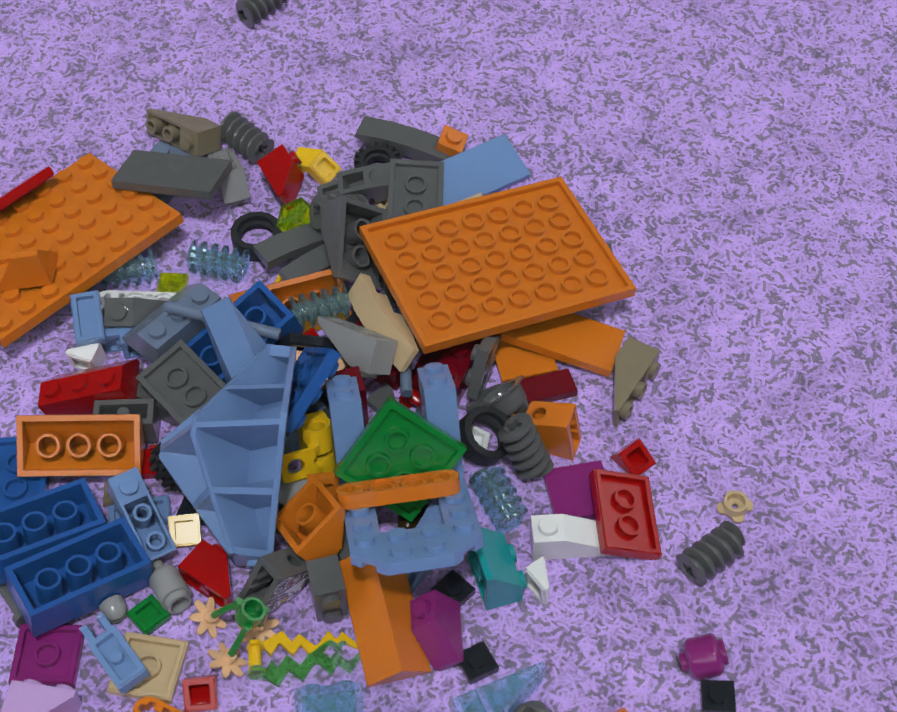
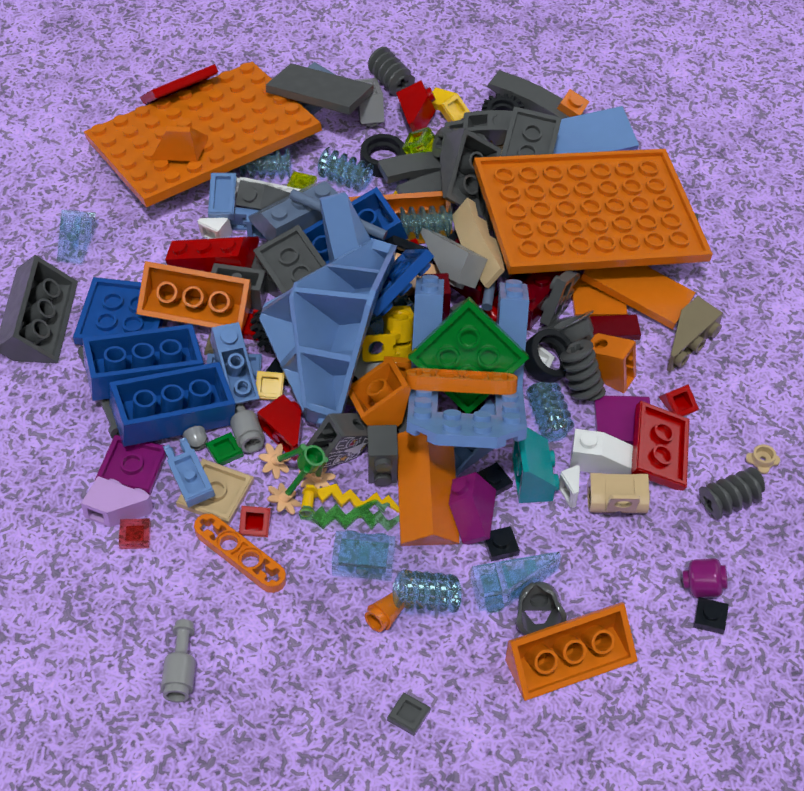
camera: 10 degrees right, 0 degrees up
(186, 132) = (338, 57): dark tan slope -> none
(591, 579) = (618, 493): none -> tan piece

